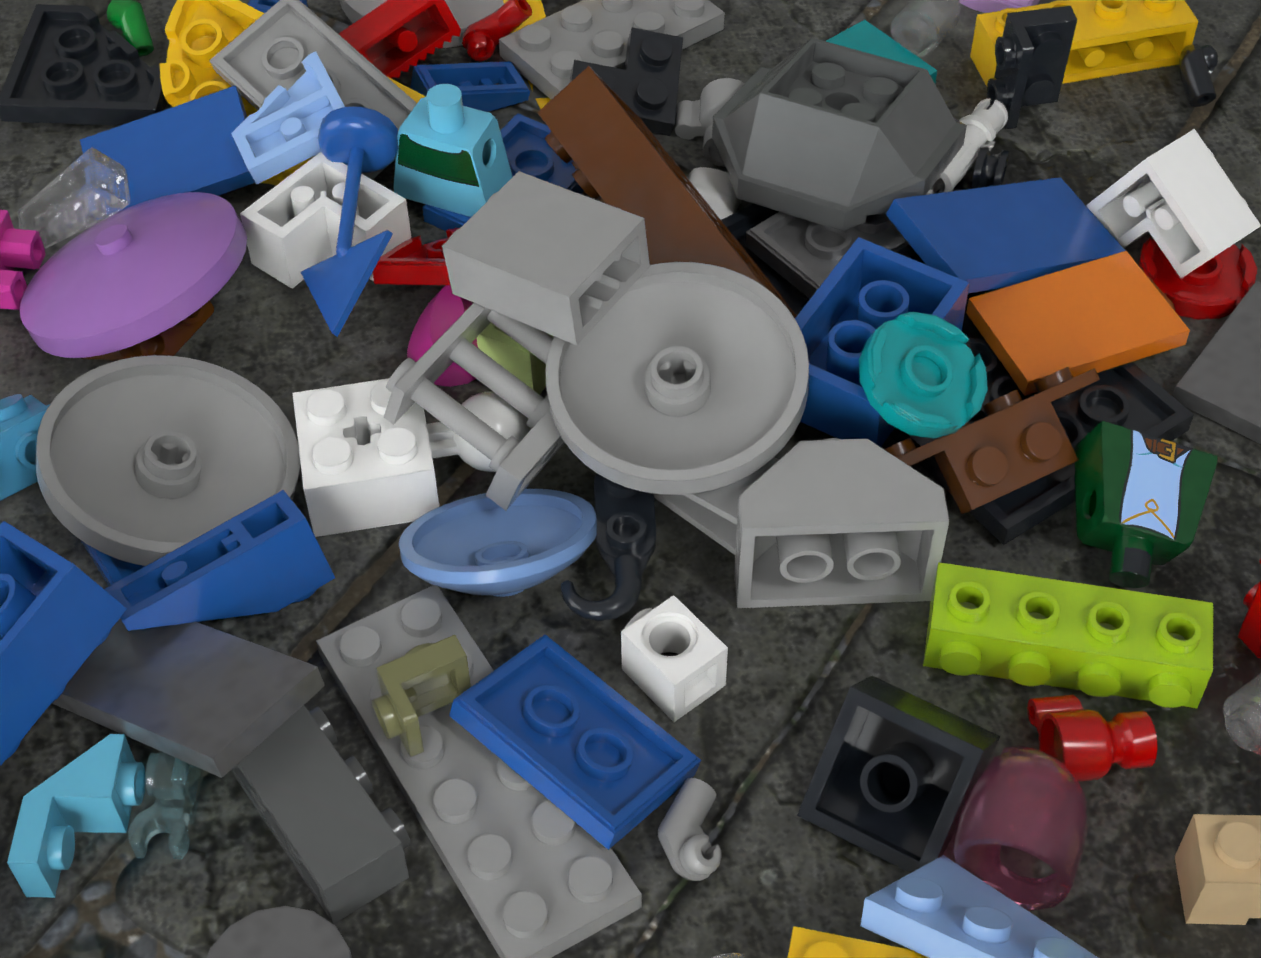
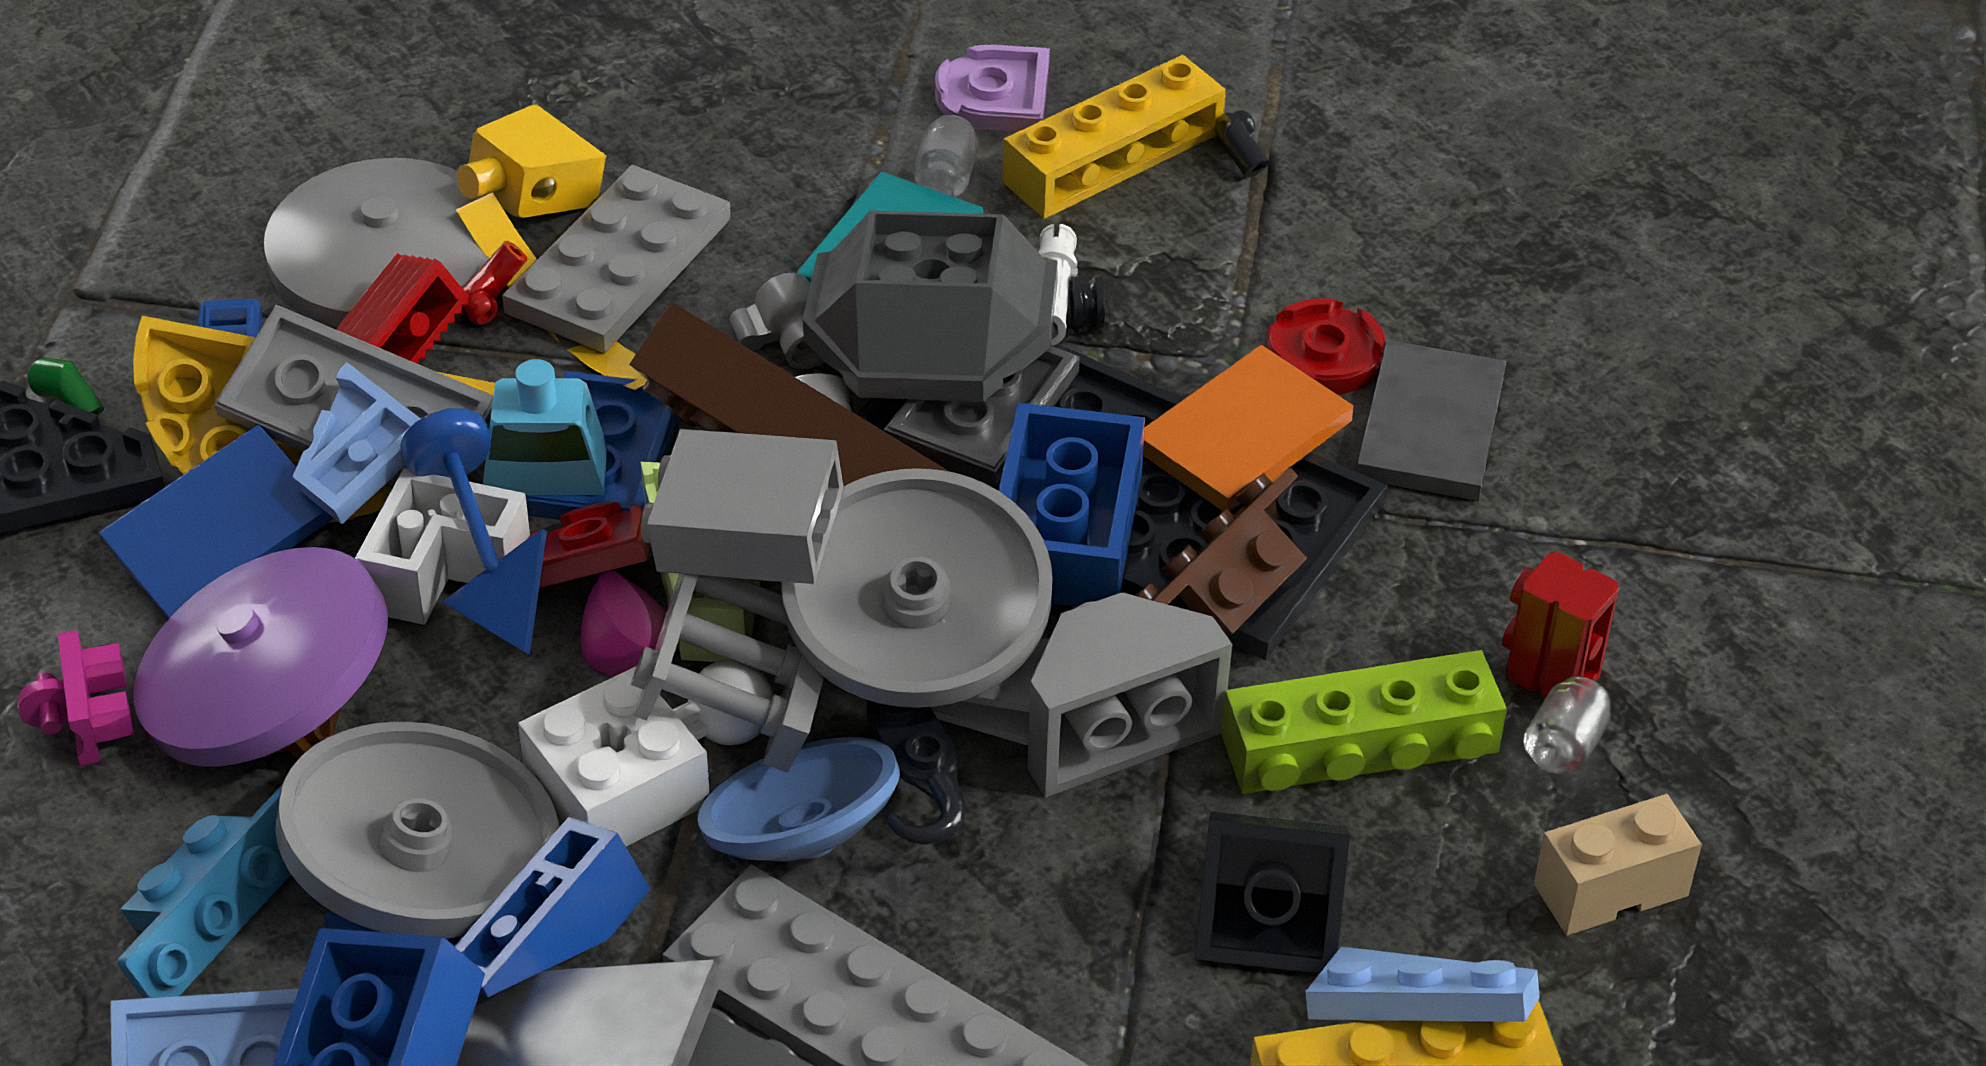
camera: 25 degrees left, 5 degrees down
(77, 198) = (148, 567): clear slope -> none
(419, 684) = (802, 954): olive bracket -> none
(475, 83) = (493, 352): blue slope -> none
(575, 740) = (966, 956): blue tile -> none
(649, 77) = (682, 275): black plate -> none
(676, 681) = (1017, 856): white brick -> none
(682, 834) = (1105, 1012): light grey arm -> none
(922, 375) = (1144, 518): teal tile -> none
(1002, 232) = (1137, 358): blue tile -> none
(1028, 805) = (1404, 868): clear pink piece -> none
(1031, 59) = (1081, 173): black bracket -> none
(1088, 741) = (1420, 810): red piece -> none
(1138, 498) = (1374, 577): dark green torso -> none
(1180, 201) = (1292, 280): white brick -> none

